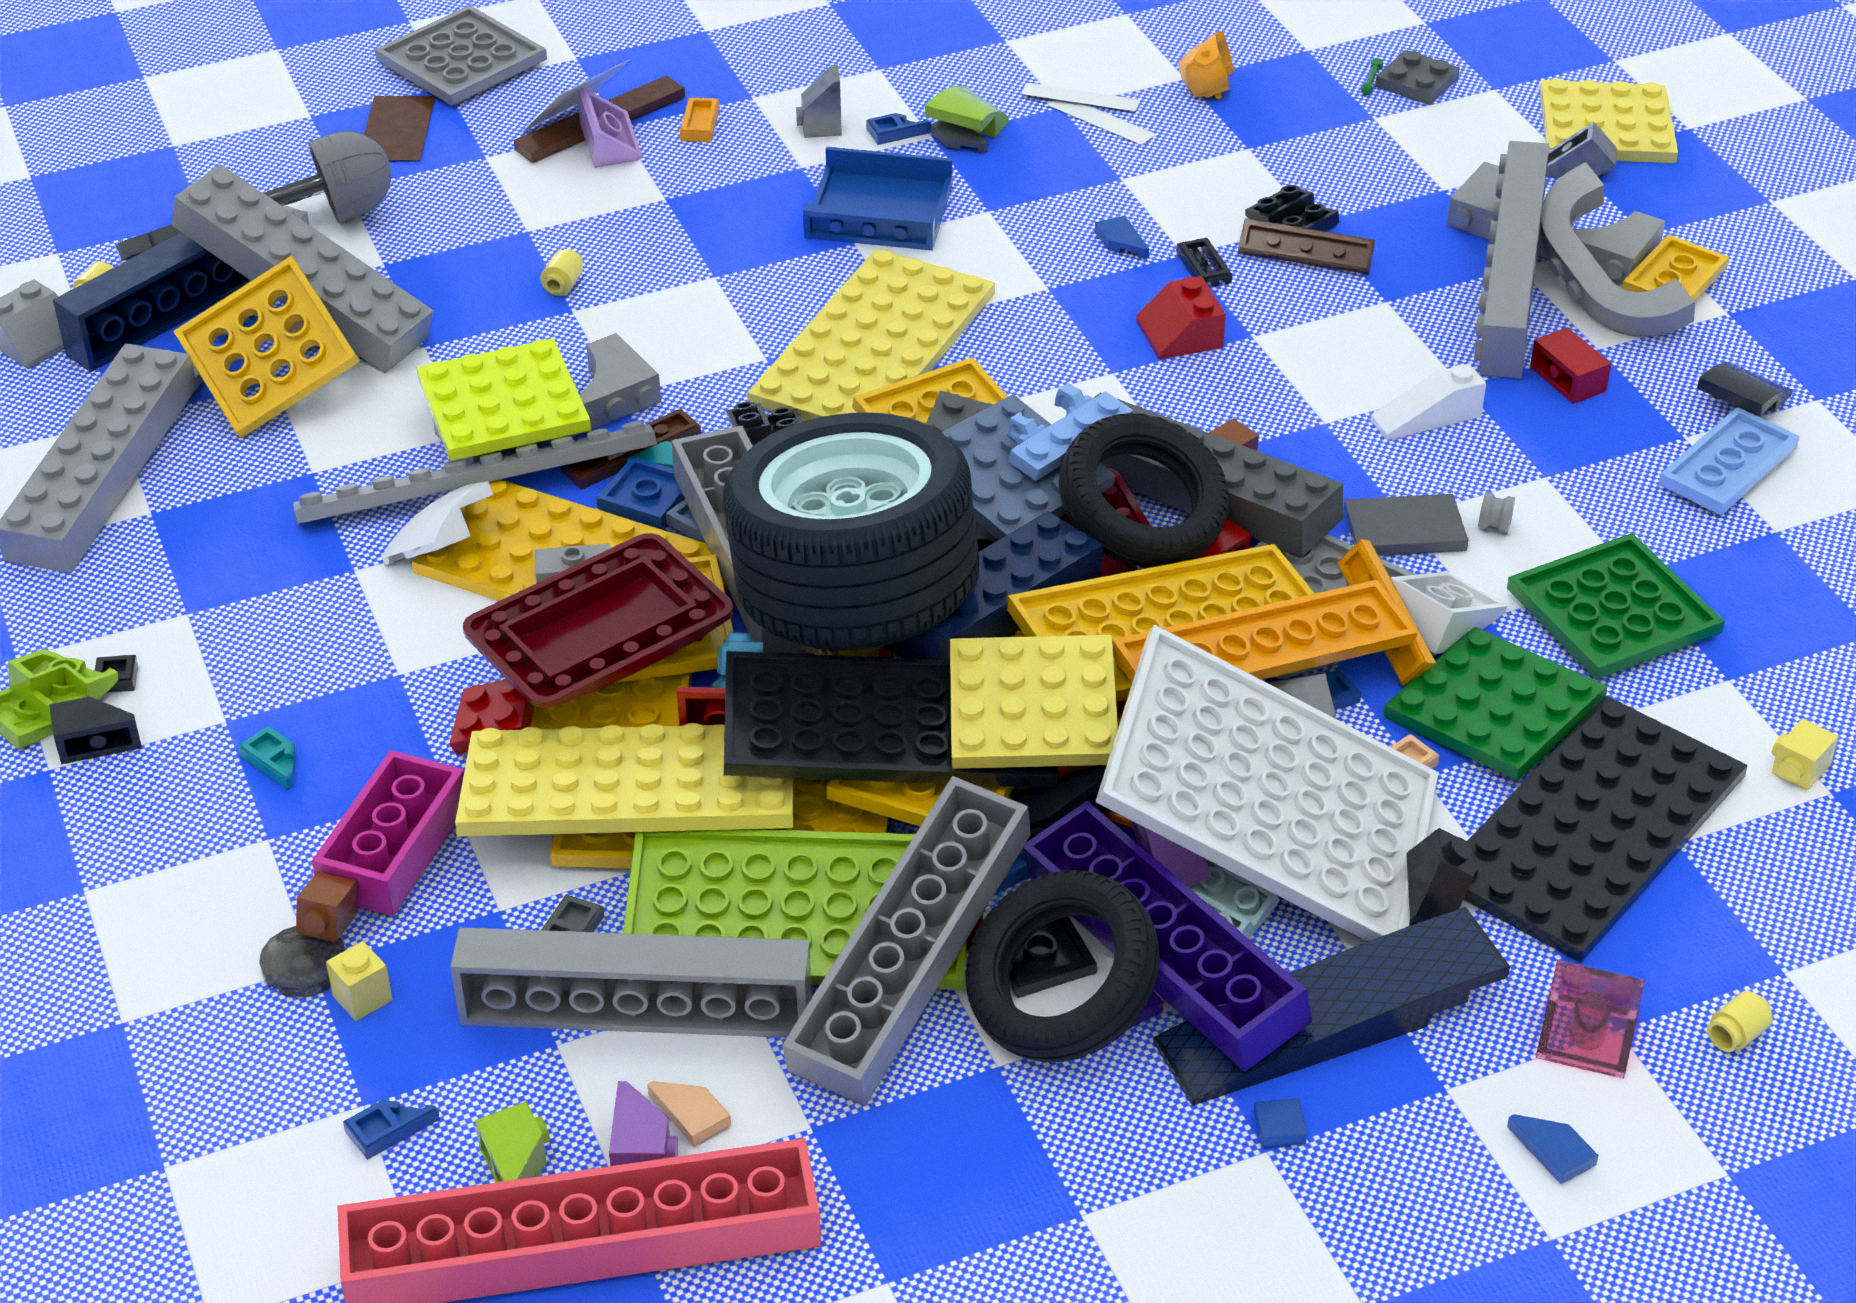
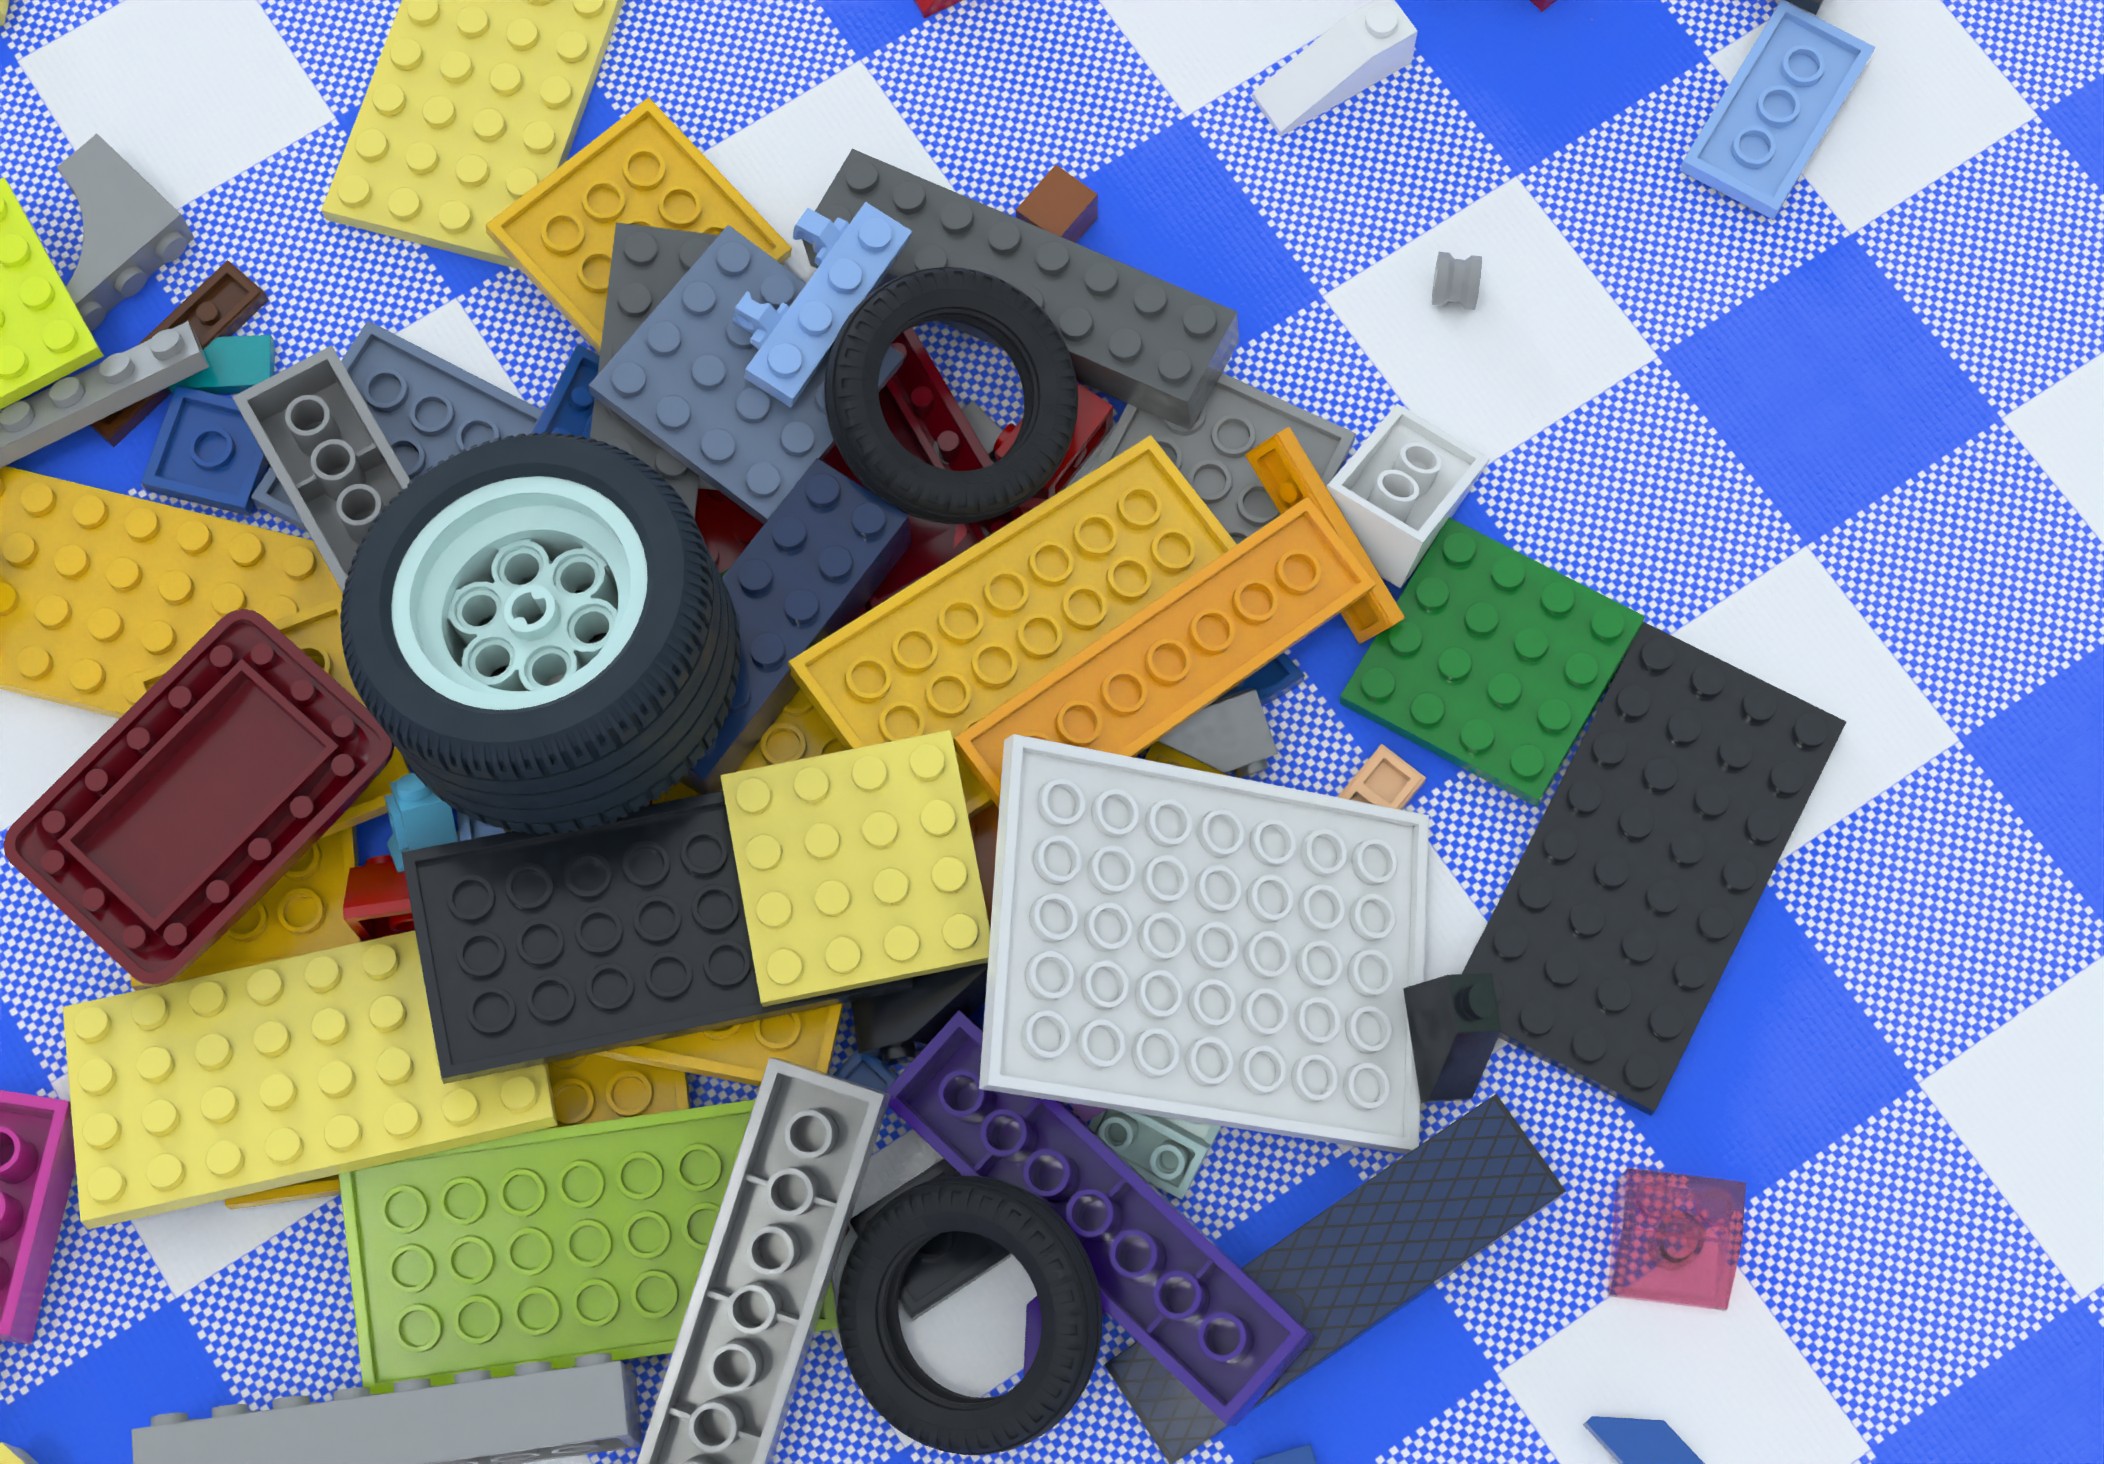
camera: 10 degrees left, 30 degrees up
(489, 706) = (69, 963): red plate -> none
(554, 560) = (136, 636): light grey plate -> none
(575, 916) = (277, 1317): dark grey tile -> none
(757, 423) = (367, 288): black slope -> none
(1407, 524) = (1328, 319): dark grey tile -> none
(1615, 605) = (1639, 438): green plate -> none
(1739, 1021) = (1870, 1202): light yellow brick -> none
(1804, 753) = (1920, 691): light yellow brick -> none

